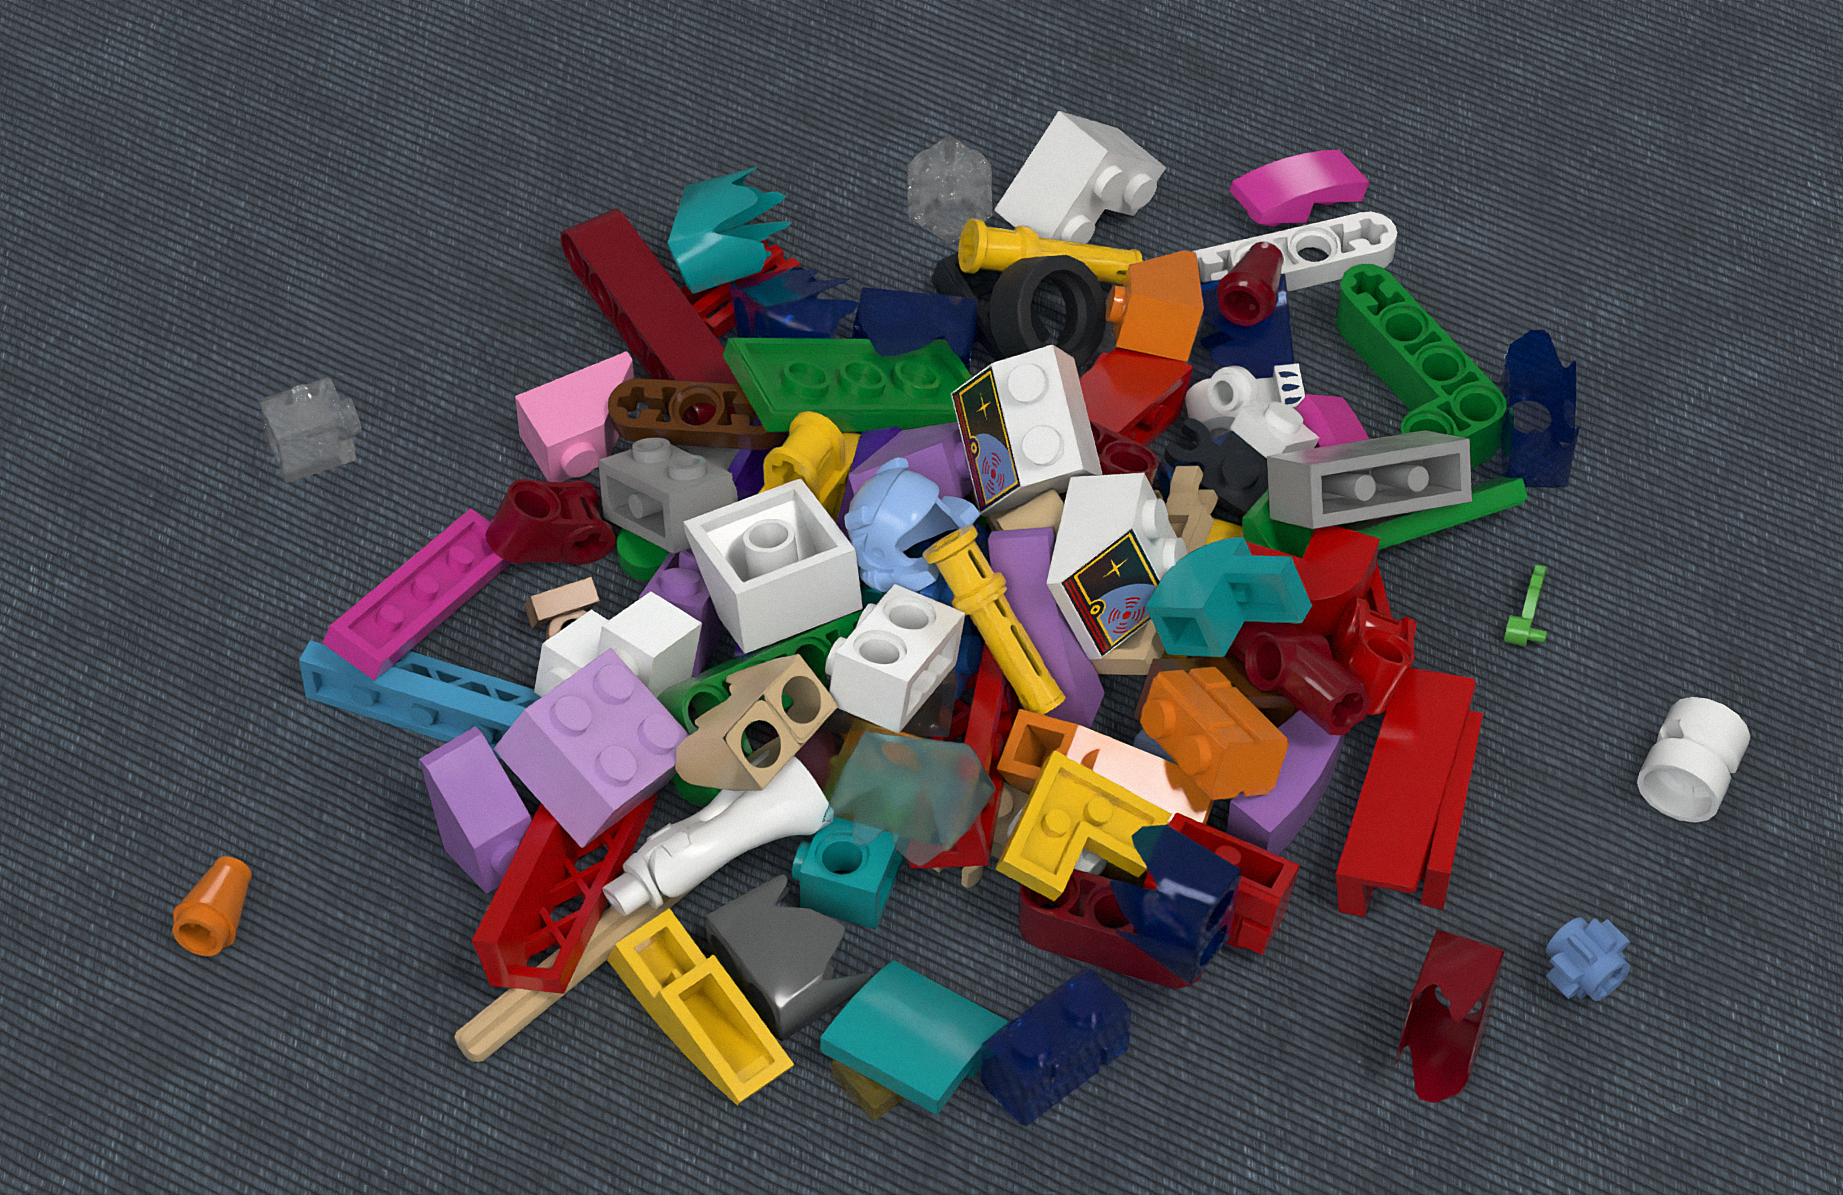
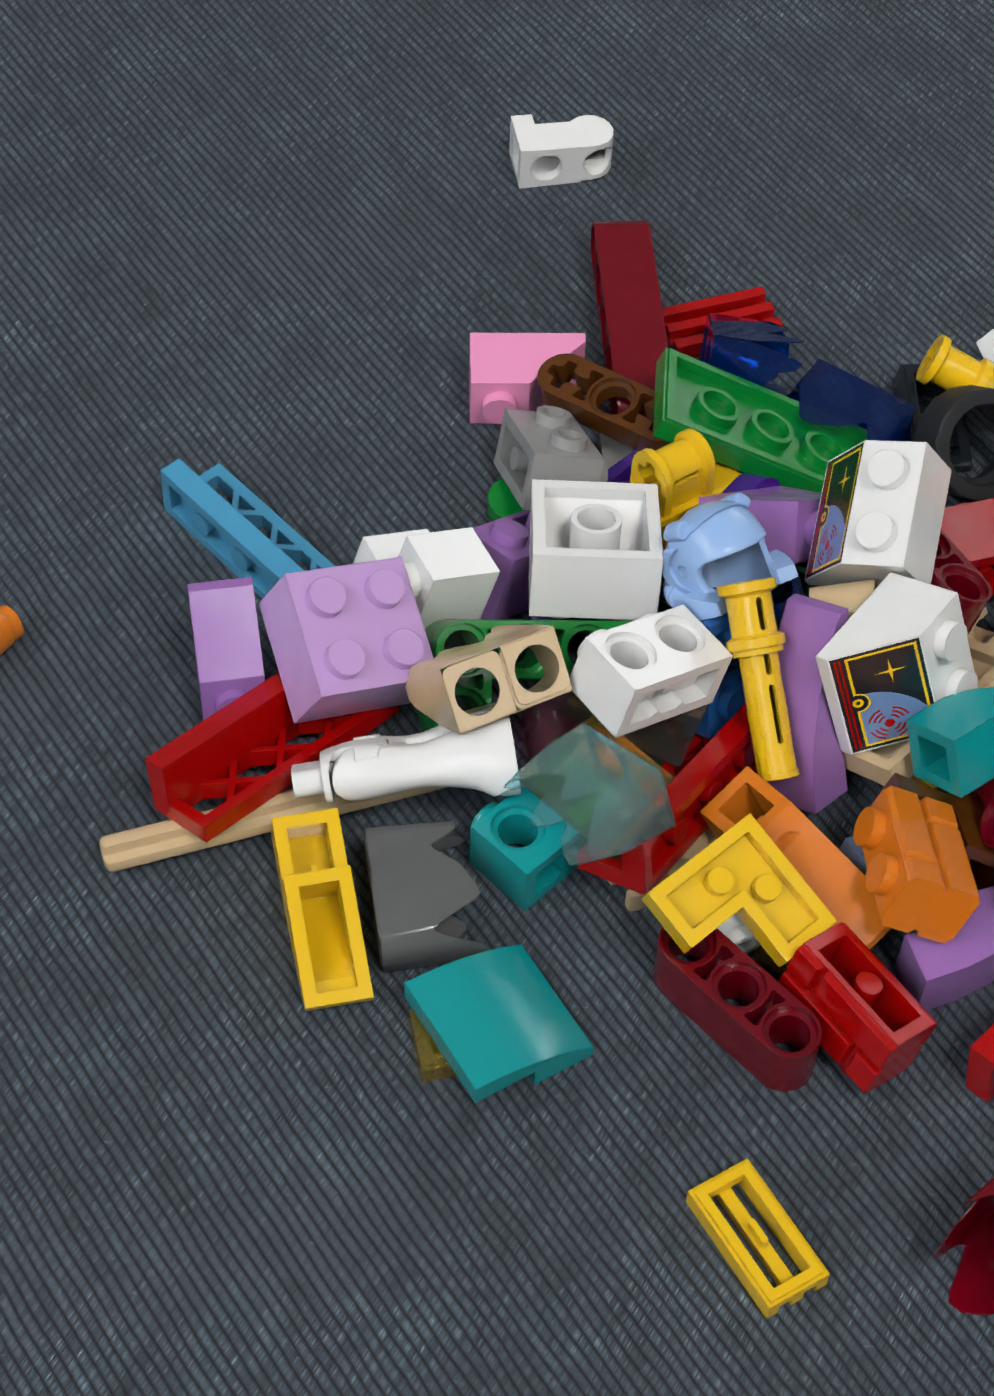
camera: 25 degrees right, 0 degrees up
(310, 429) = (294, 298): clear brick -> none
(416, 597) = (292, 458): dark pink plate -> none
(478, 166) = (559, 150): none -> white leg
(546, 520) = (437, 444): dark red piece -> none
(561, 605) = (411, 514): tile -> none
(713, 207) = (739, 252): teal piece -> none
(949, 188) = (947, 304): clear brick -> none
(1055, 1046) = (617, 1089): clear blue brick -> none
(1190, 893) = (794, 986): clear blue piece -> none
(1230, 1127) = (788, 1288): none -> yellow tile

